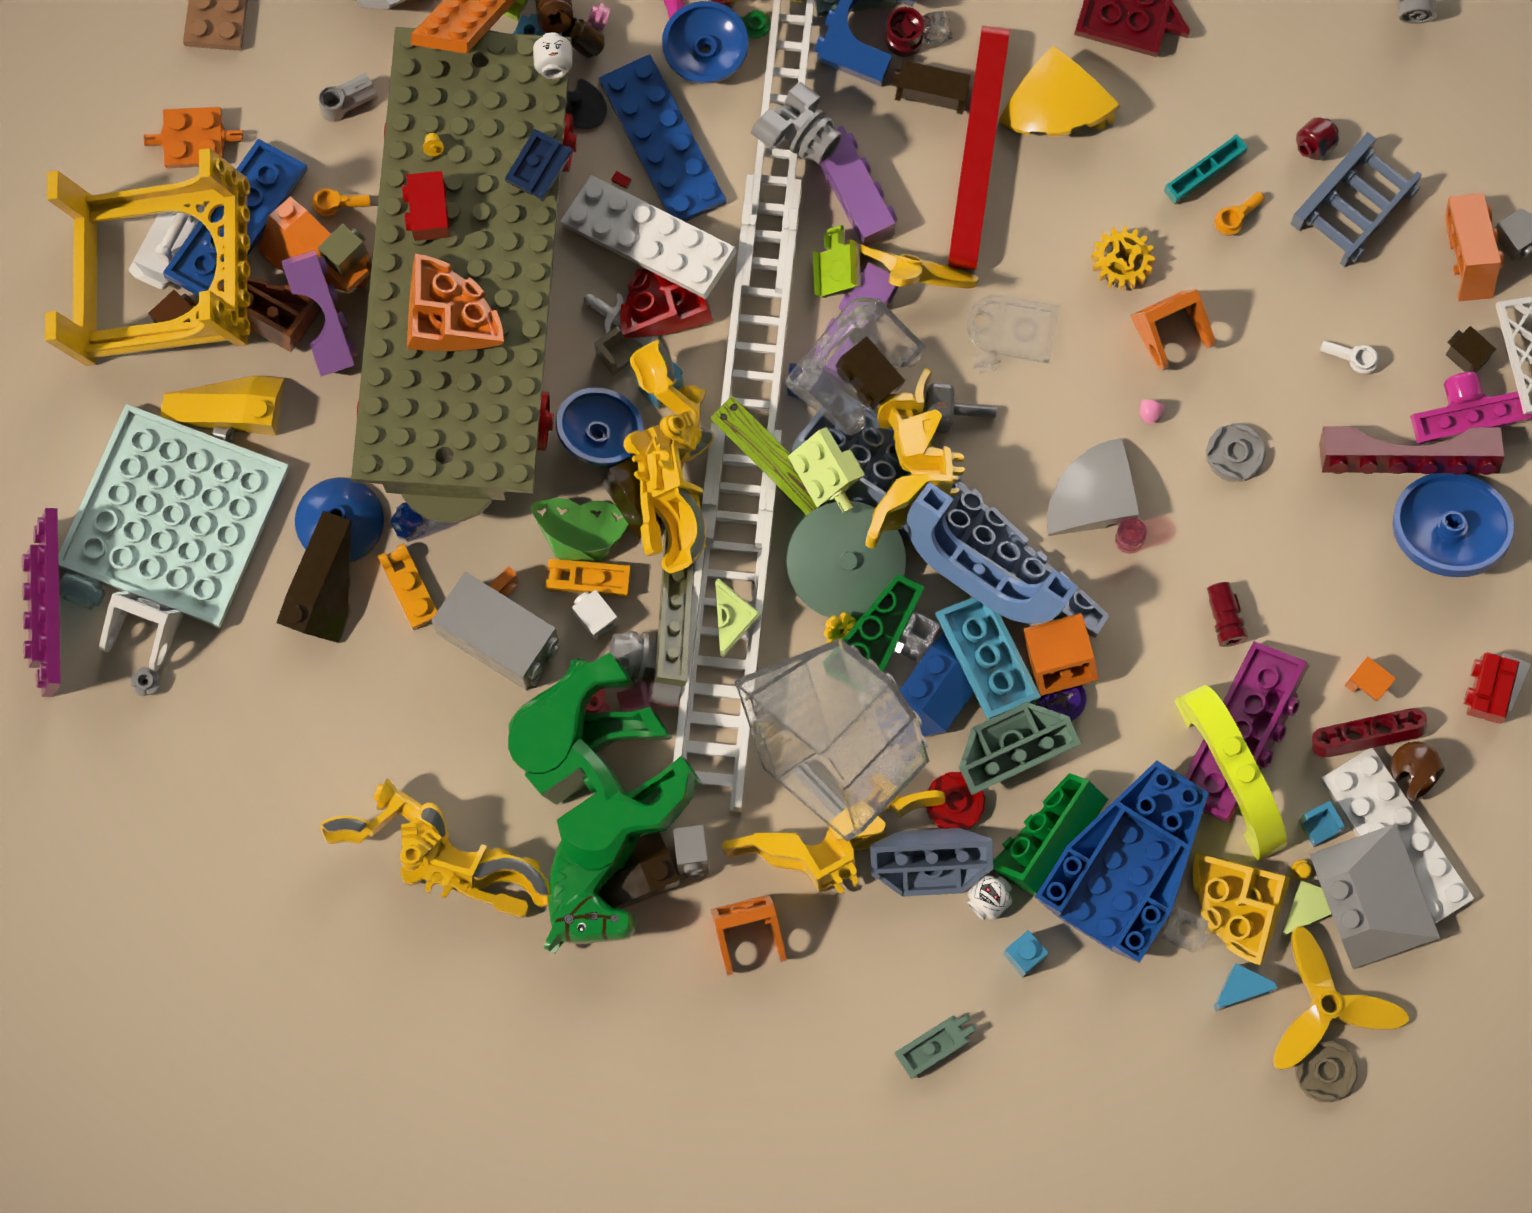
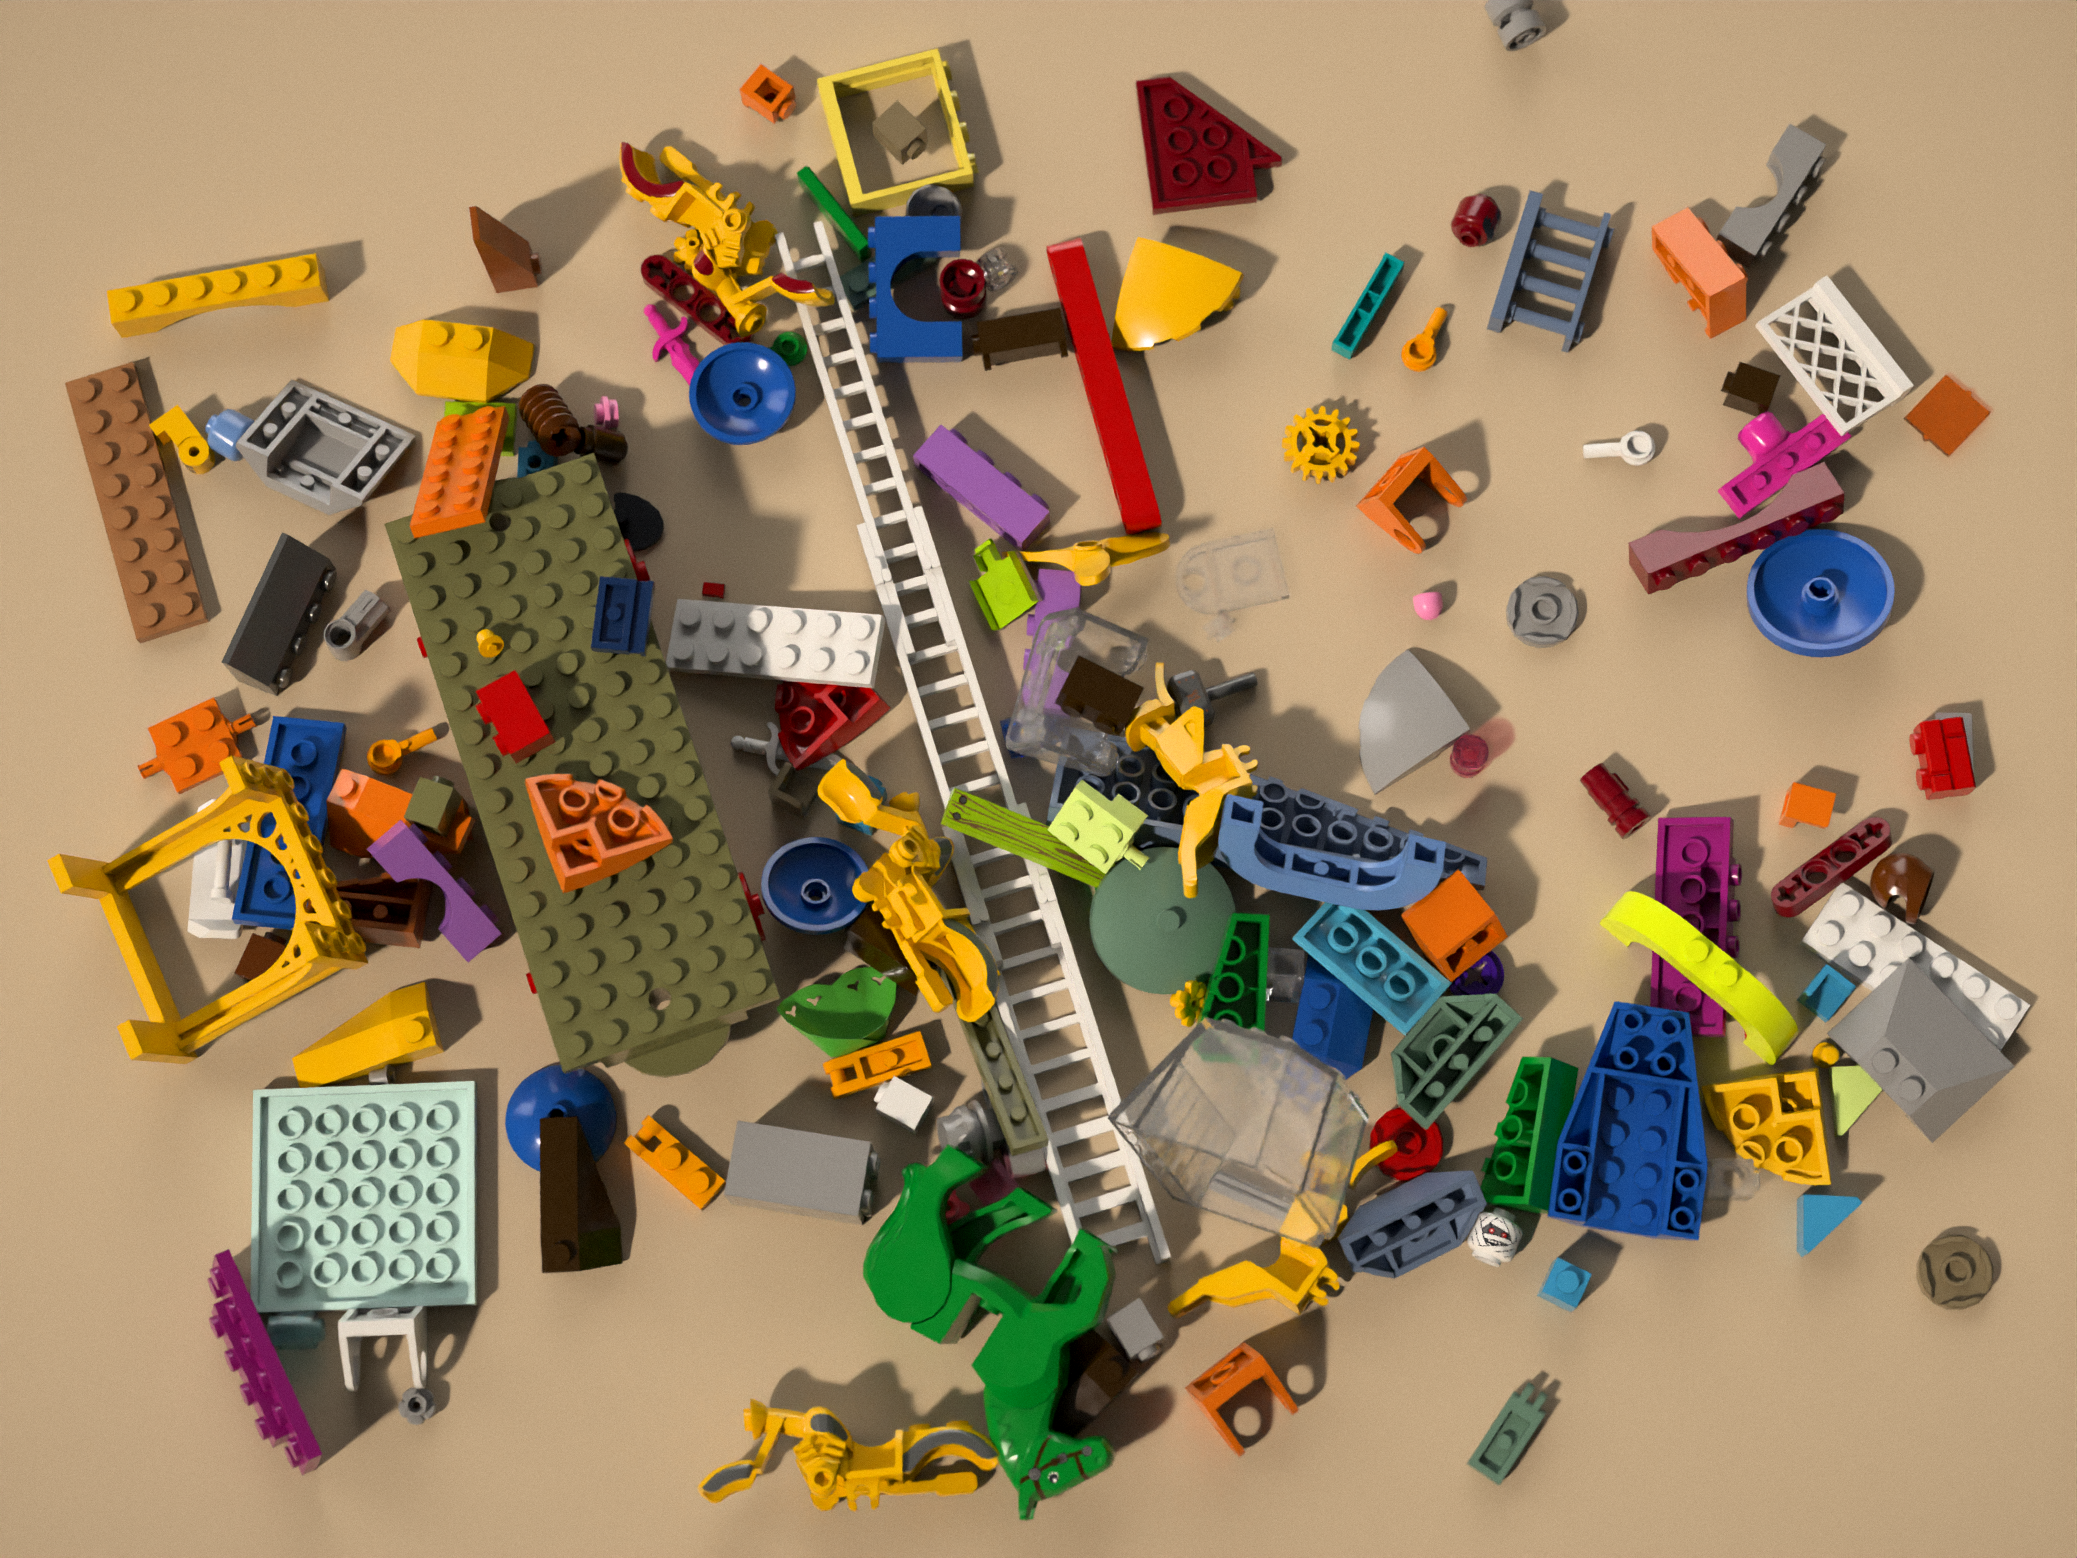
camera: 20 degrees left, 0 degrees up
(293, 66) = (279, 615): none -> dark grey slope
(407, 523) = (642, 1090): clear blue rock -> none
(505, 582) = (786, 1112): orange plate -> none
(552, 56) = (584, 483): white head -> none
(662, 139) = (740, 524): blue plate -> none
(734, 616) = (1065, 1039): yellowish green tile -> none
(798, 122) = (895, 446): light grey beam -> none
(1351, 1009) = (1916, 1226): yellow piece -> none

